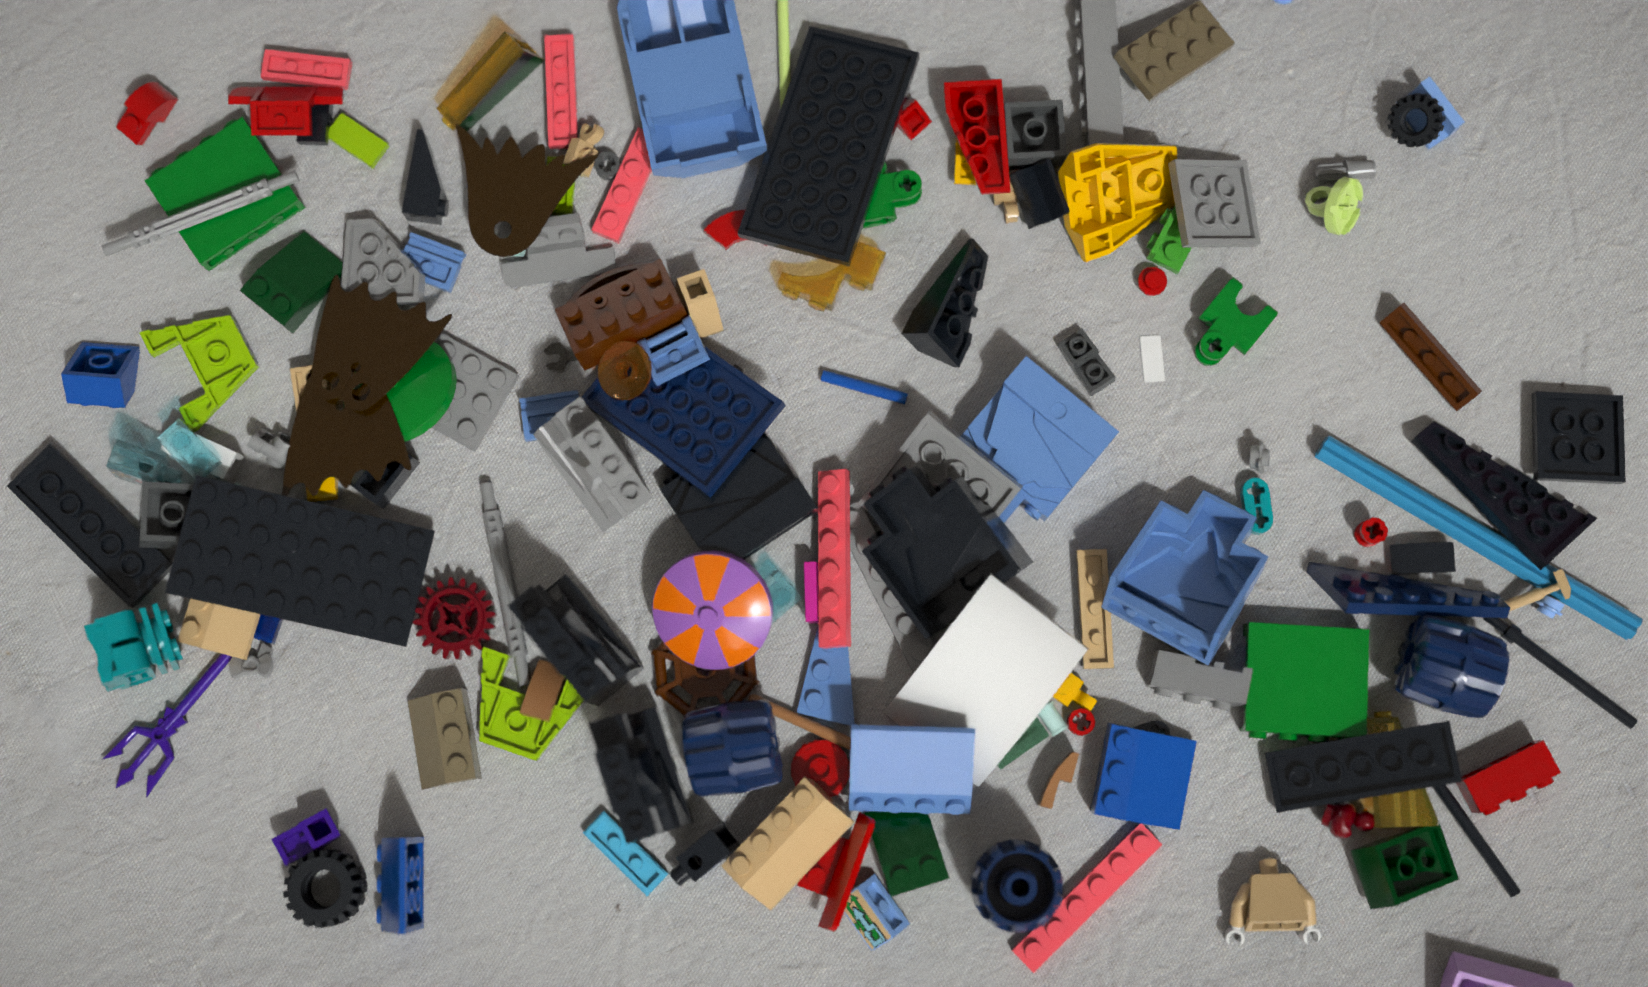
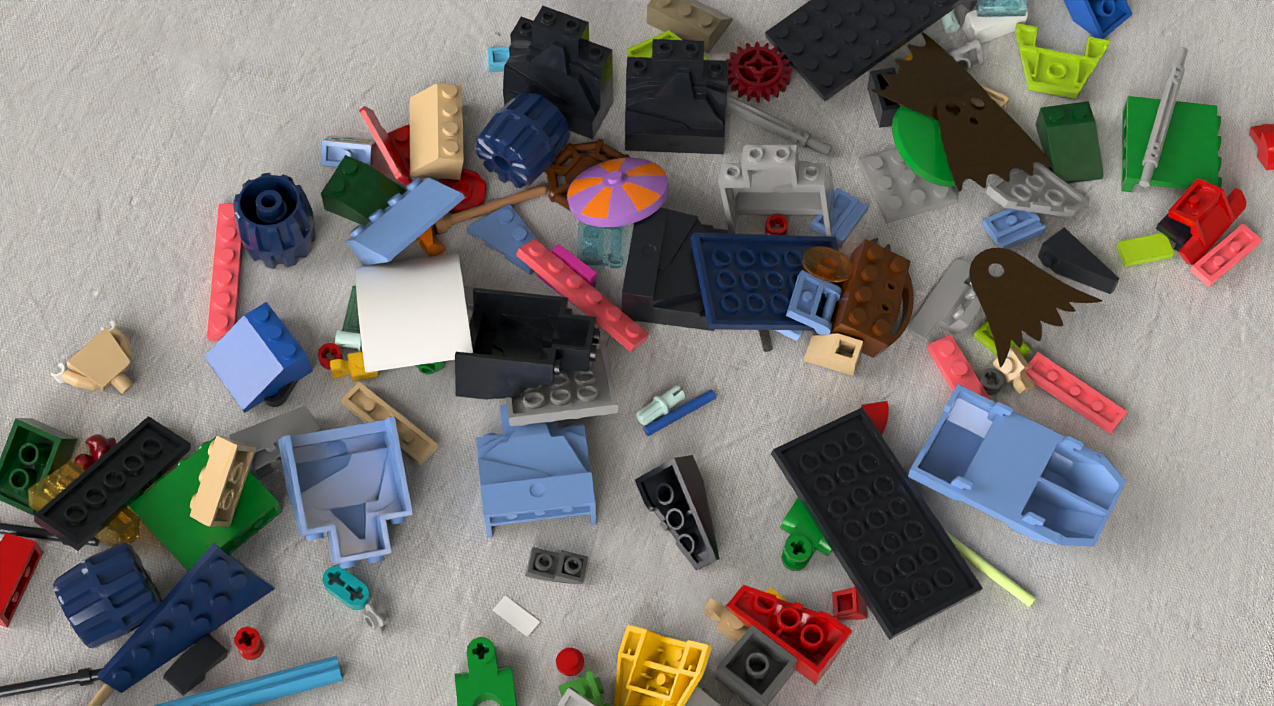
camera: 130 degrees right, 20 degrees down
(489, 81) = (1120, 353): clear yellow slope -> none
(711, 848) = (477, 79): black torso -> none
(824, 289) = (763, 472): clear yellow arch -> none
(874, 405) = (660, 405): none -> light aqua axle
(1039, 194) = (709, 630): black panel -> none
(1063, 772) = (309, 311): medium nougat slope -> none
(1292, 664) = (222, 482): none -> tan slope

